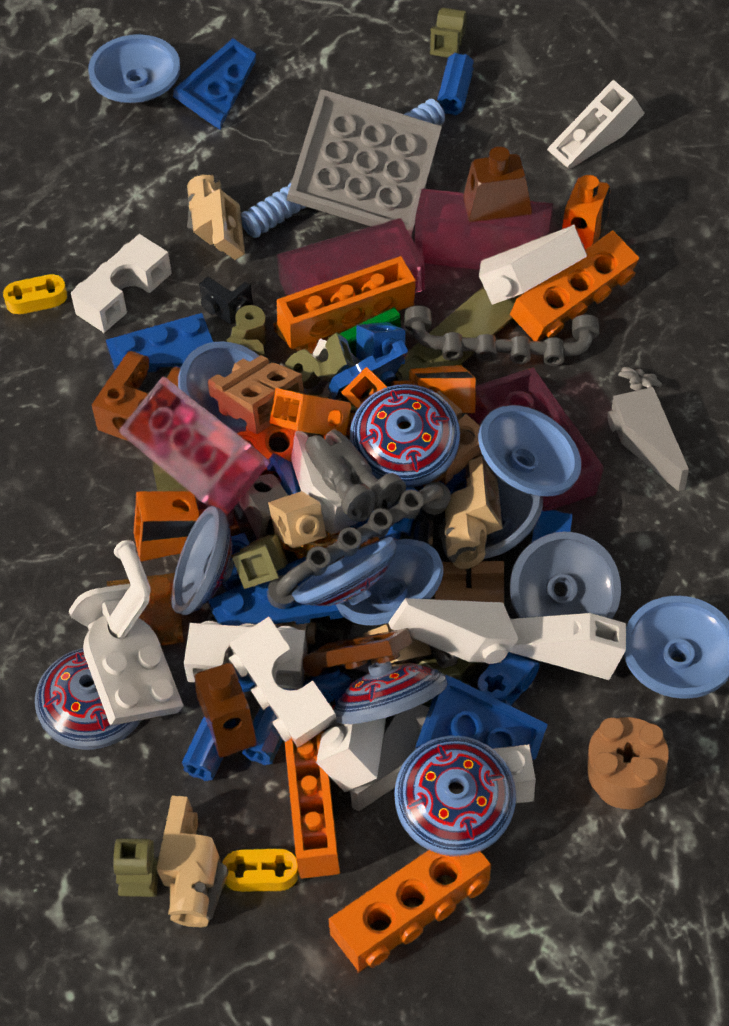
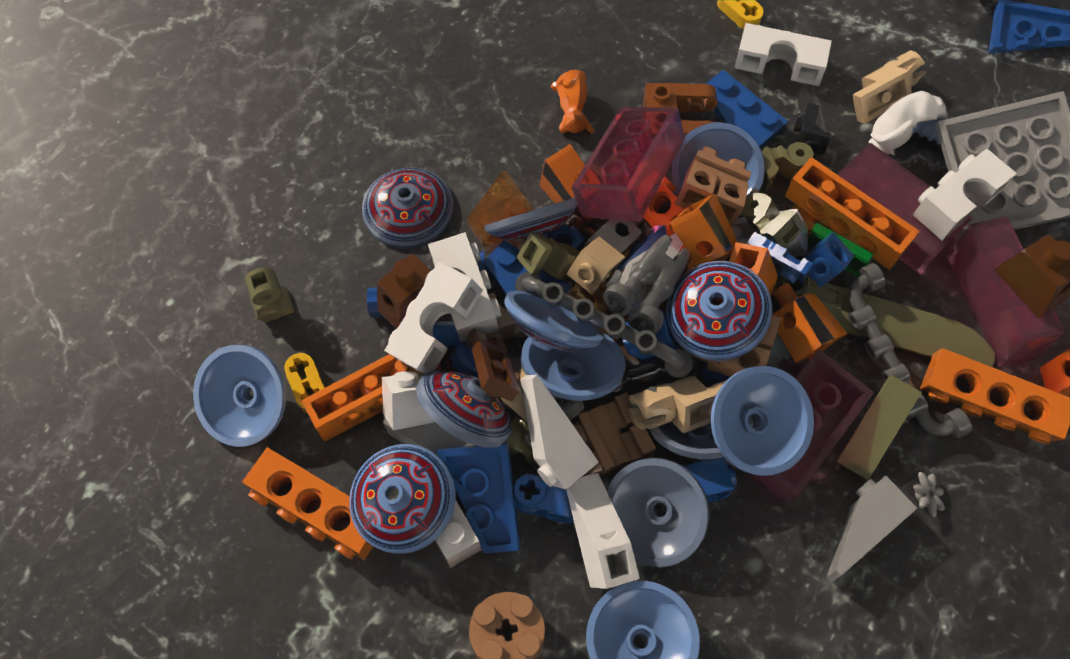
camera: 65 degrees right, 10 degrees up
(55, 480) = (573, 95): none -> orange animal
(124, 649) = (429, 214): white plate -> none
(189, 867) = (290, 327): tan plate -> none
(266, 225) = (900, 119): none -> white animal
(277, 937) = (225, 400): none -> medium blue dish
(382, 223) = (948, 207): none -> white arch
(530, 264) = (986, 342): white slope -> none
(564, 382) = (878, 427): none -> olive tile

